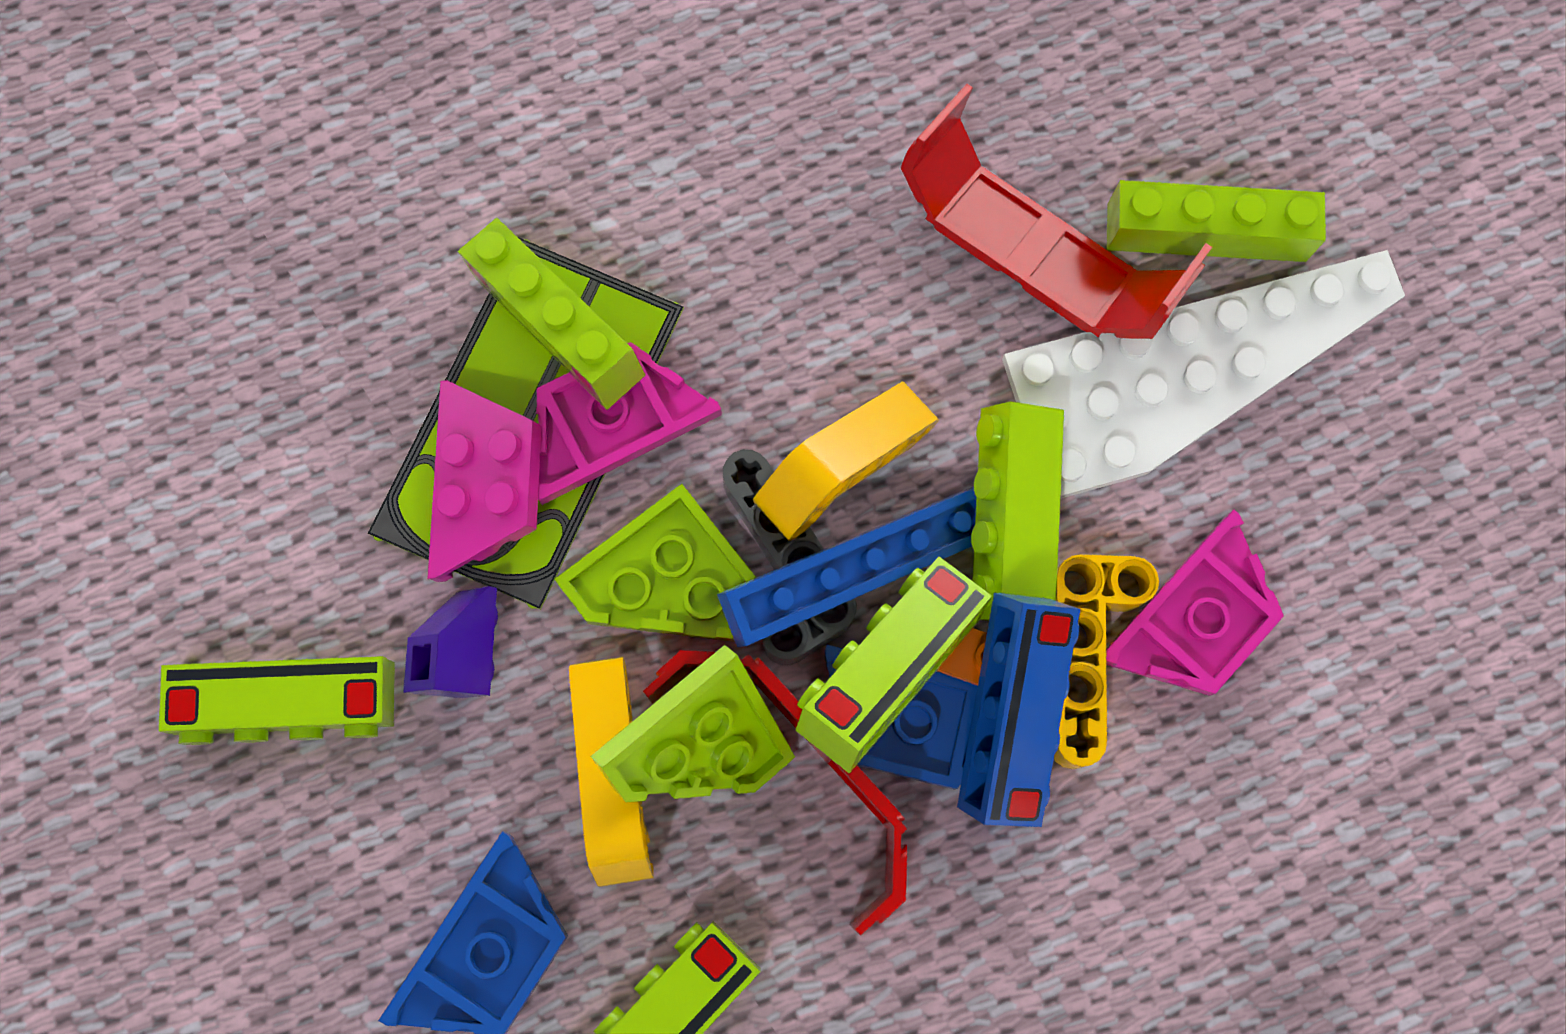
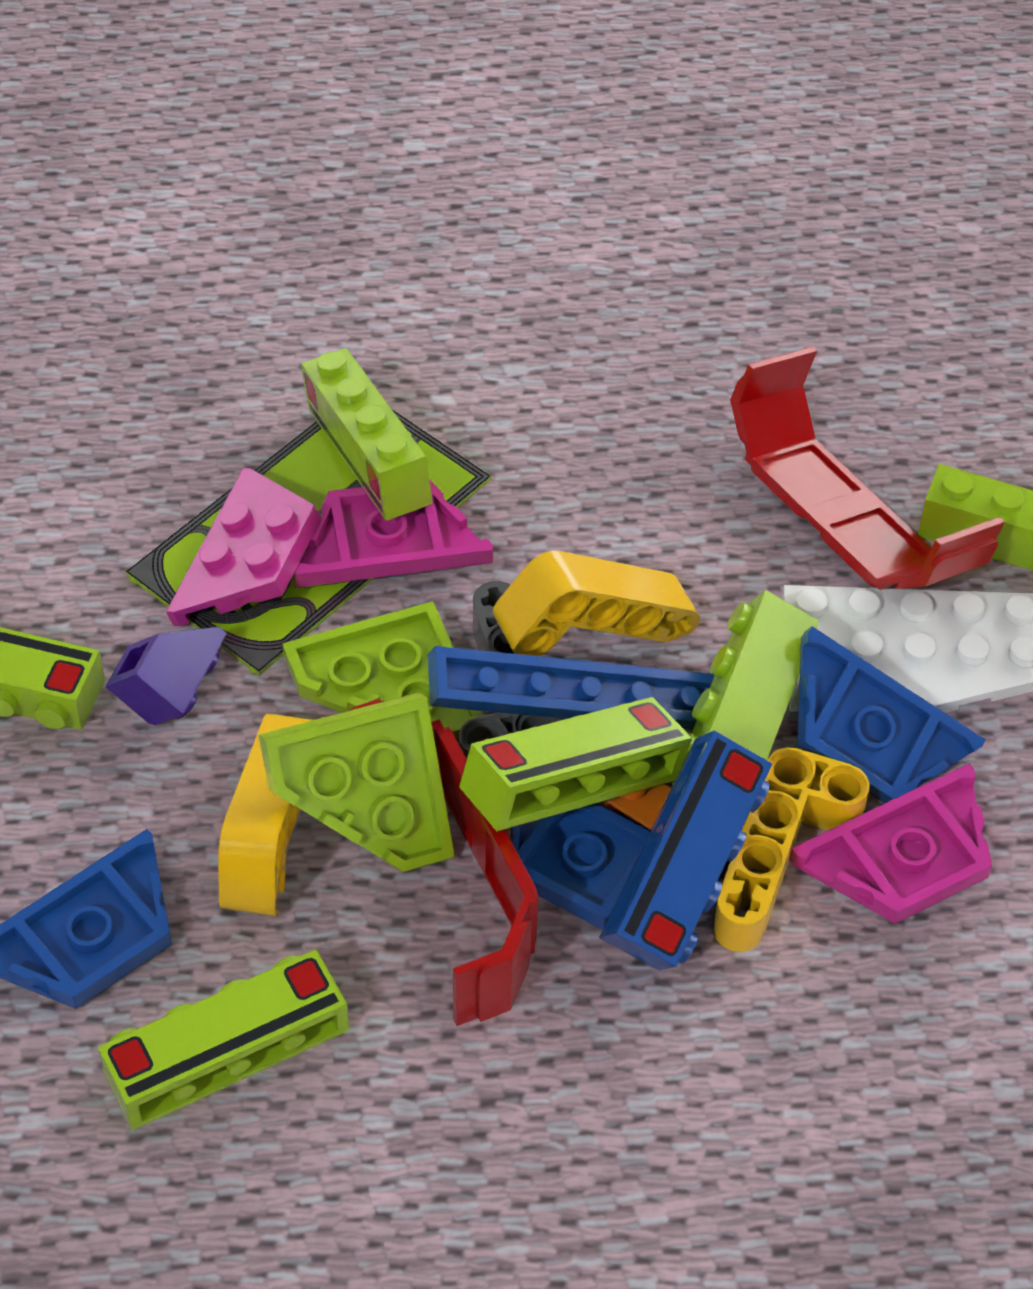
camera: 20 degrees right, 25 degrees down
(1136, 498) = (873, 720): none -> blue wing

